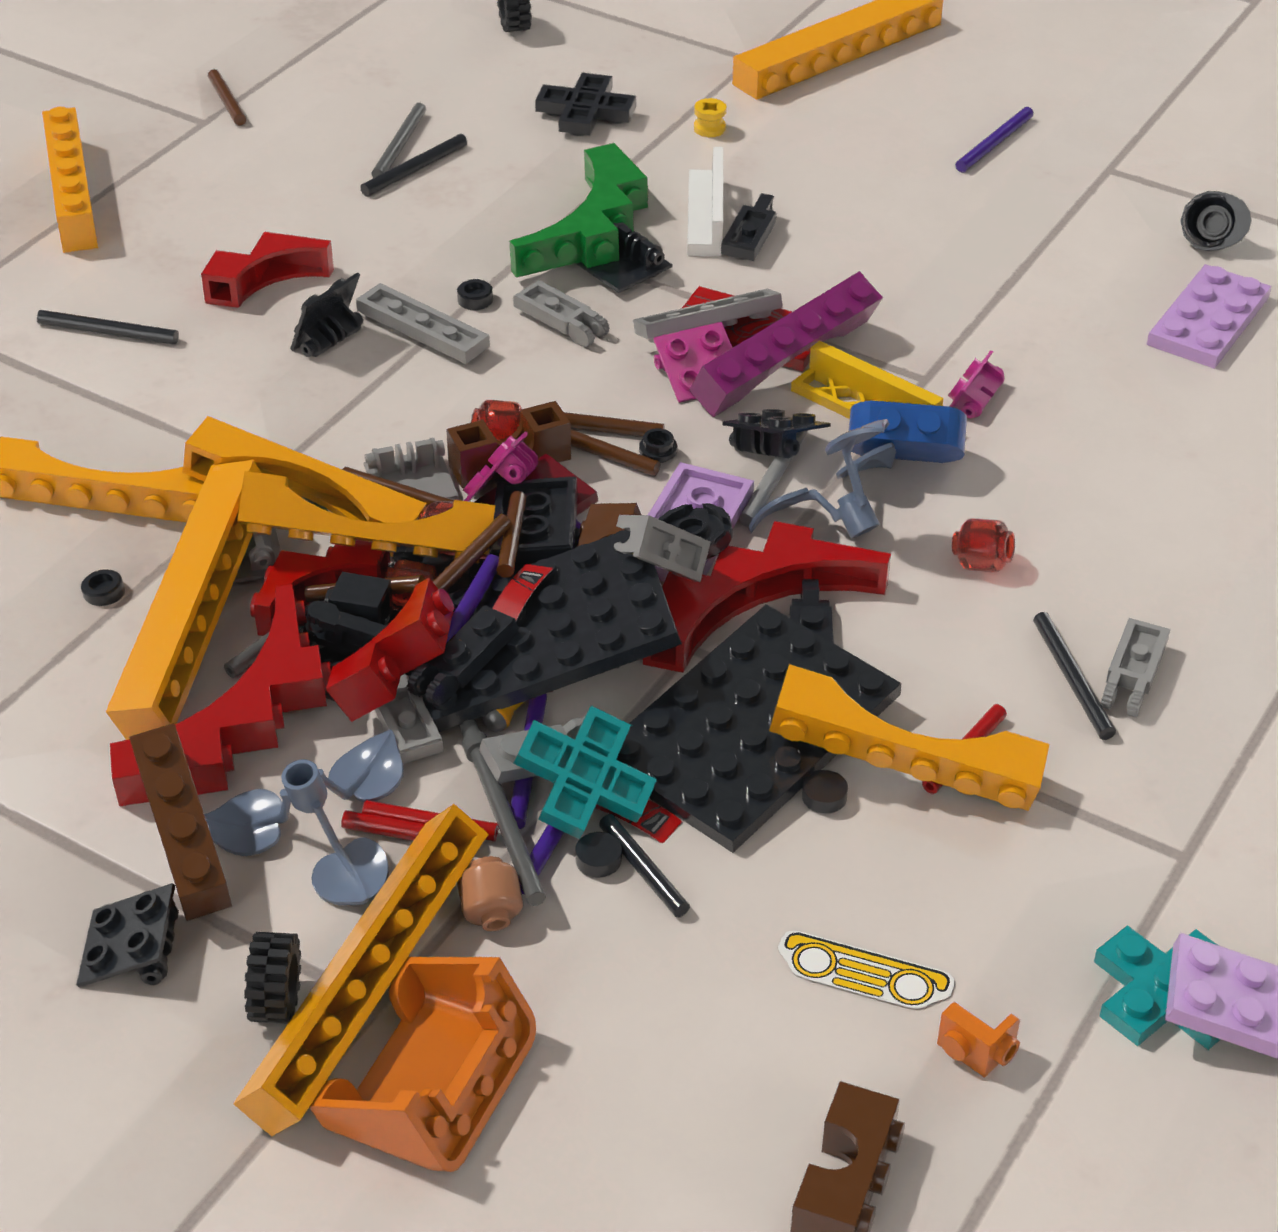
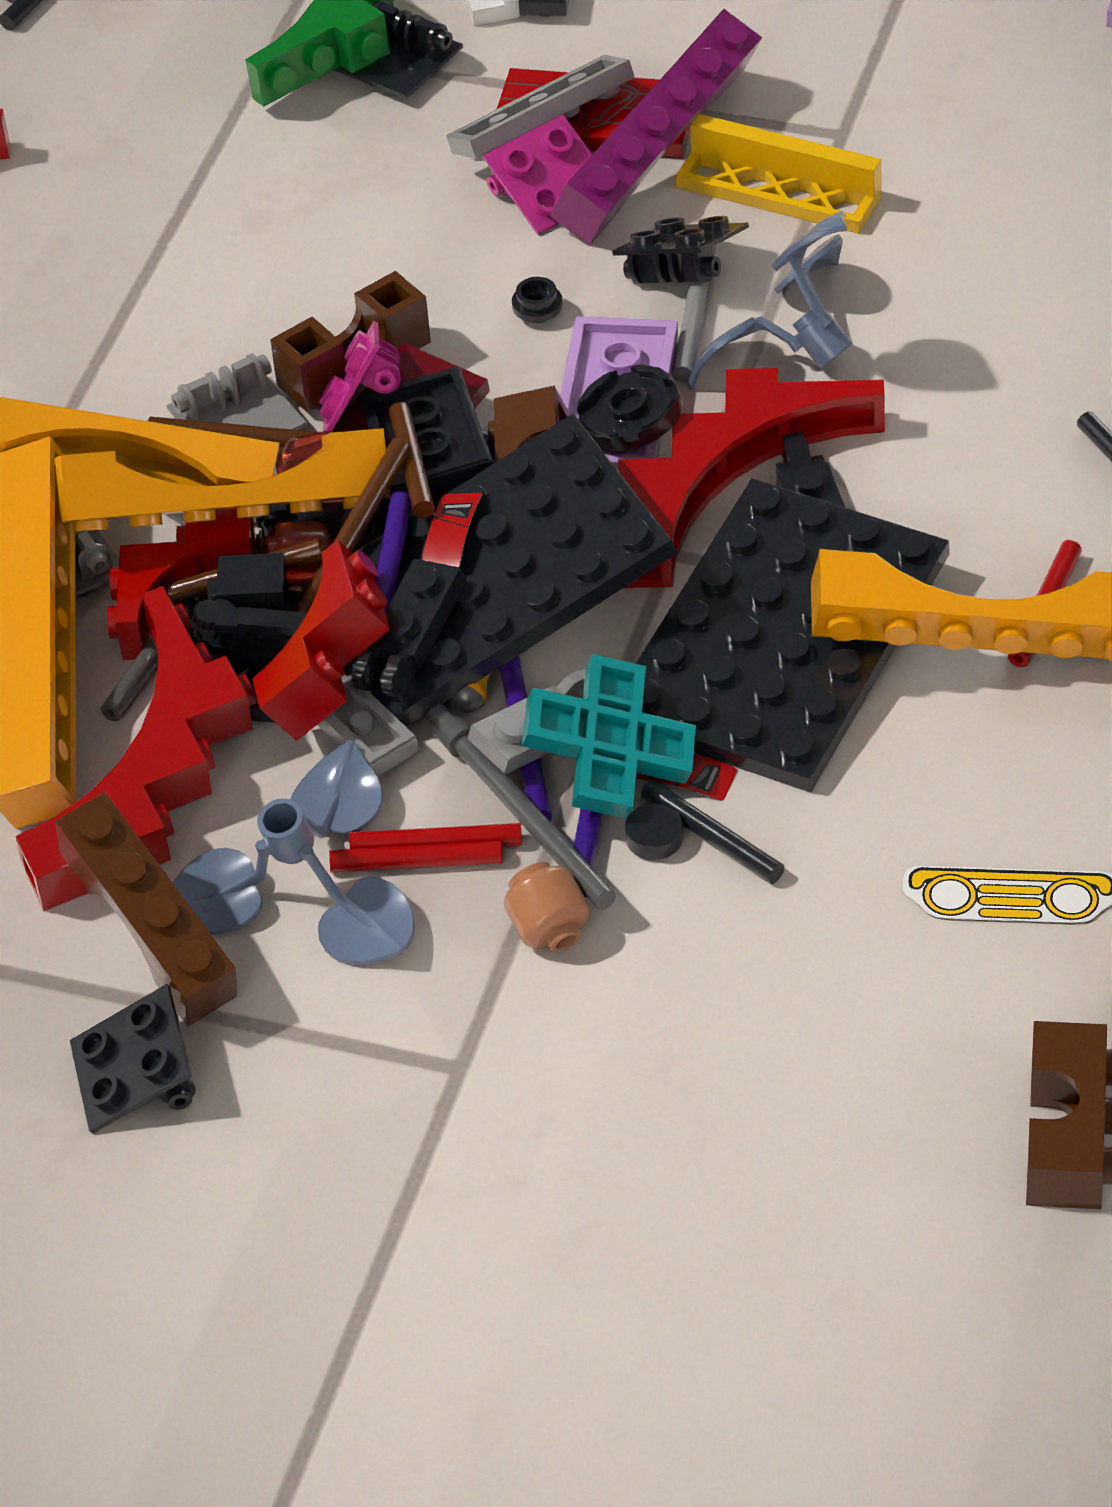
camera: 10 degrees left, 5 degrees up
(272, 977) = (334, 1063): black tyre -> none
(327, 318) = (42, 222): black hinge -> none
(360, 972) = (434, 1029): light orange brick -> none
(423, 323) = (166, 197): light grey plate -> none
(443, 1065) = (563, 1111): orange windscreen -> none
(475, 294) = (216, 142): black tile -> none
(499, 416) = (328, 303): clear red head -> none
(561, 312) = (343, 144): light grey hinge -> none
(611, 425) = (471, 283): reddish brown bar -> none
(615, 453) = (487, 322): reddish brown bar -> none
(664, 546) = (613, 434): light grey hinge -> none
(825, 791) = (896, 693): black tile -> none
(915, 430) = (877, 210): blue brick -> none
(982, 384) = (912, 139): dark pink hinge -> none
(984, 545) = (989, 341): clear red head -> none

